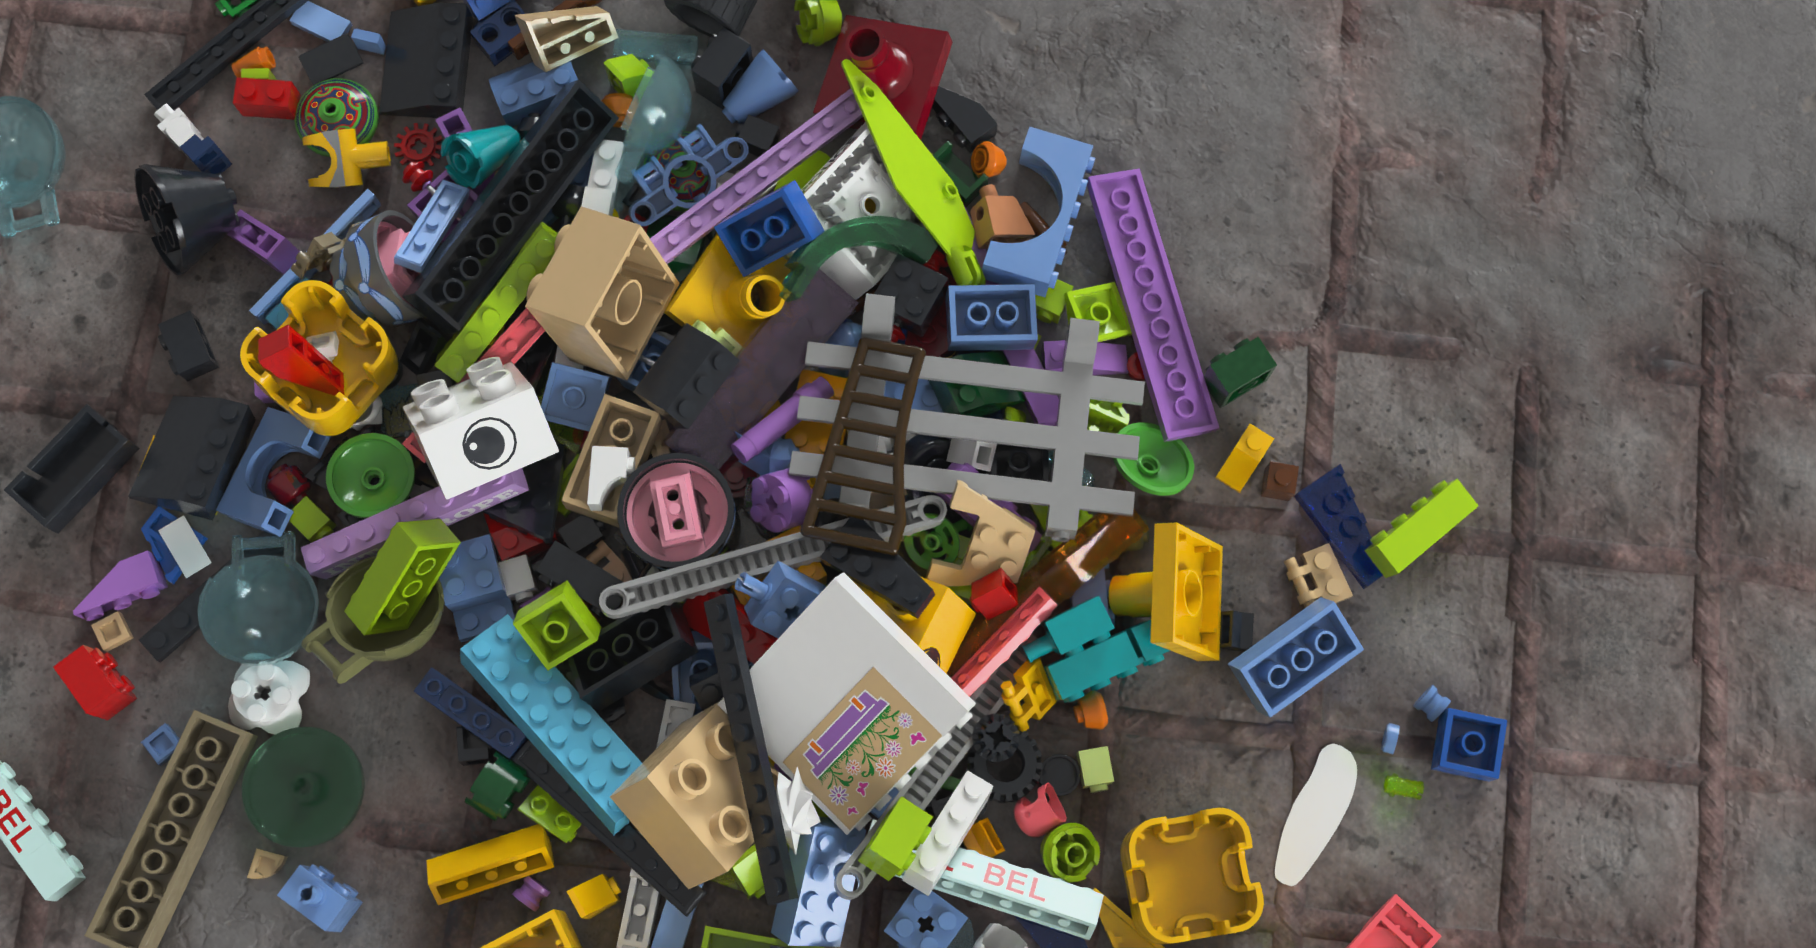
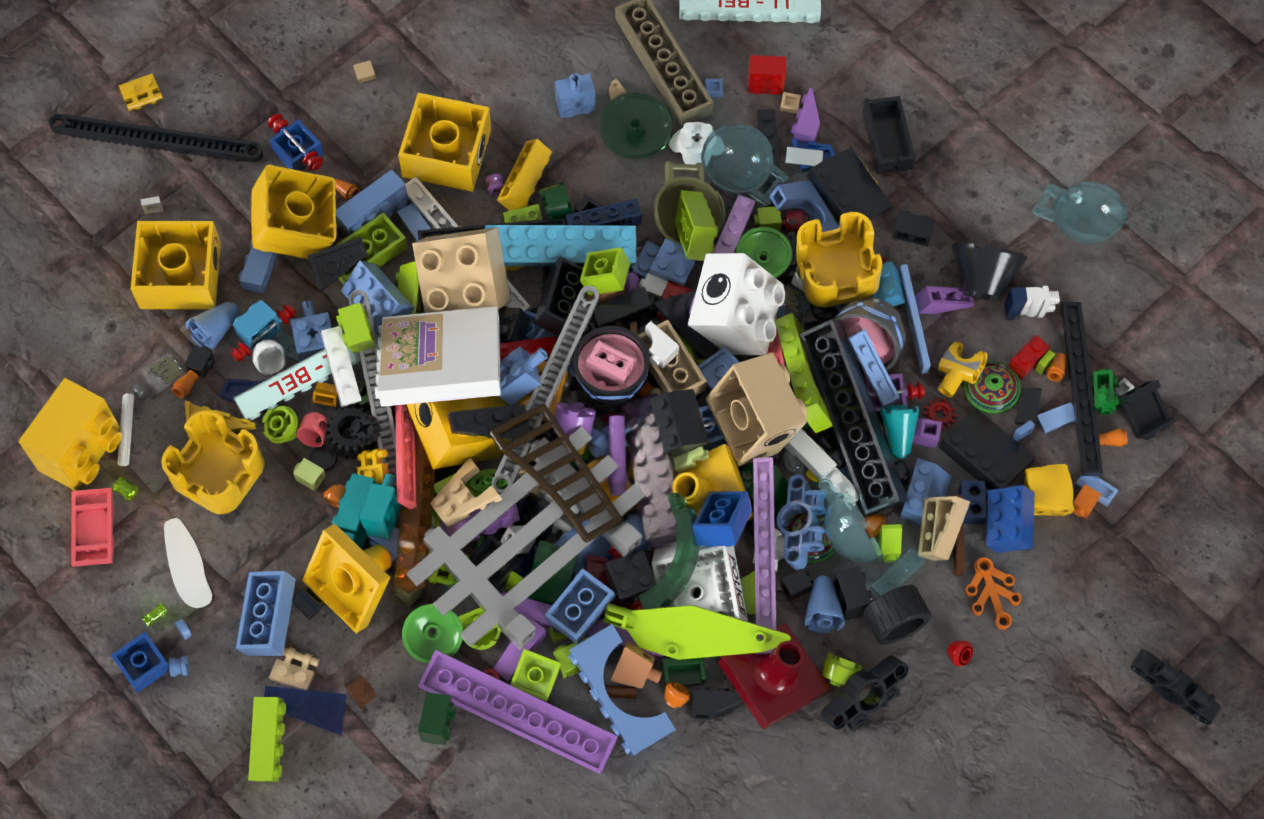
camera: 130 degrees right, 10 degrees down
(297, 361) = (839, 243): red slope -> none
(318, 254) = (905, 315): dark tan piece -> none
(326, 344) = (844, 265): white tile -> none
(595, 896) = (466, 205): yellow slope -> none
(750, 750) = (461, 298): black plate -> none
(795, 808) = (415, 297): white hair -> none
(993, 594) = (433, 483): red brick -> none
(1244, 458) = (390, 687): yellow slope -> none

